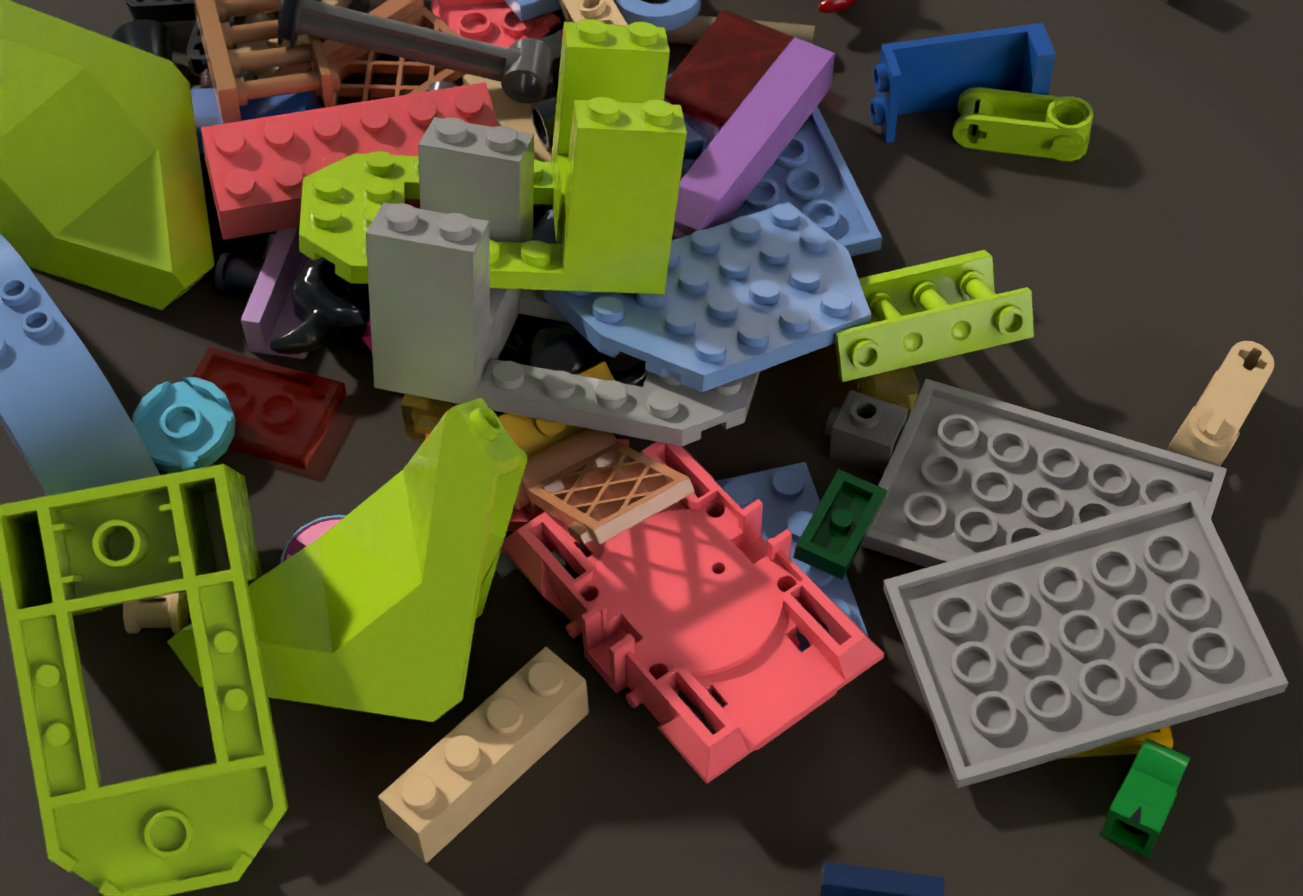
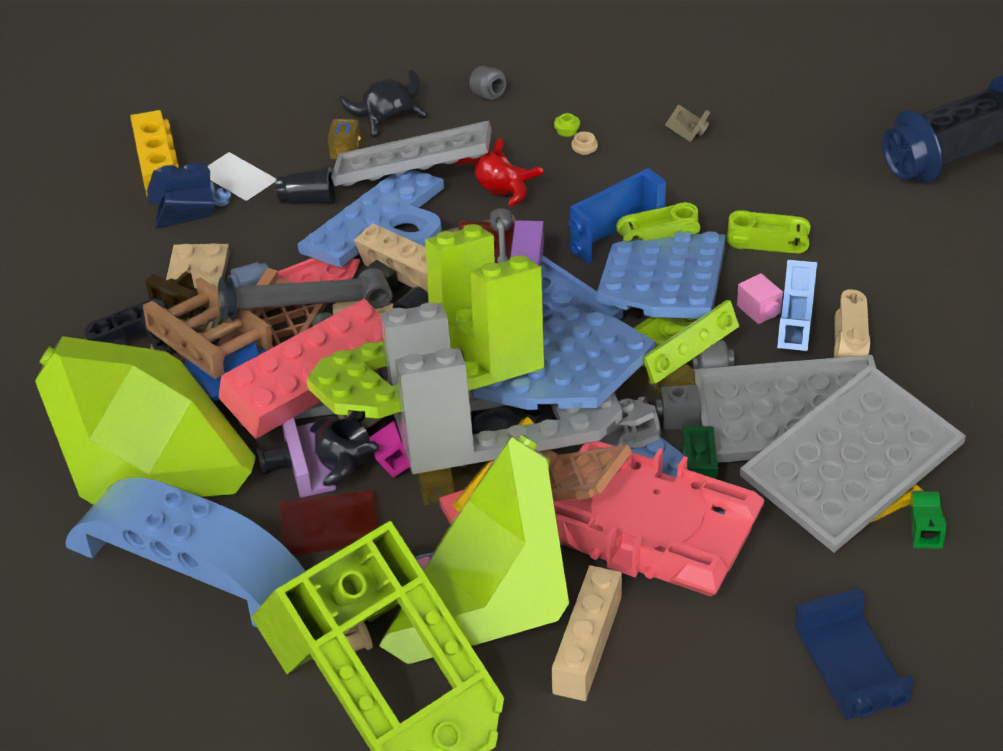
camera: 25 degrees left, 10 degrees down
(185, 424) = (303, 539): medium azure tile -> none
(773, 432) = (637, 427): none -> light grey hinge
(774, 32) = (499, 227): none -> dark grey hinge
(972, 372) = (714, 357): none -> dark grey head
(976, 207) = (664, 275): none -> medium blue plate
(1106, 300) = (759, 298): none -> bright pink brick
(1143, 358) = (797, 305): none -> light blue arch
(1190, 193) = (767, 232): none -> lime piece

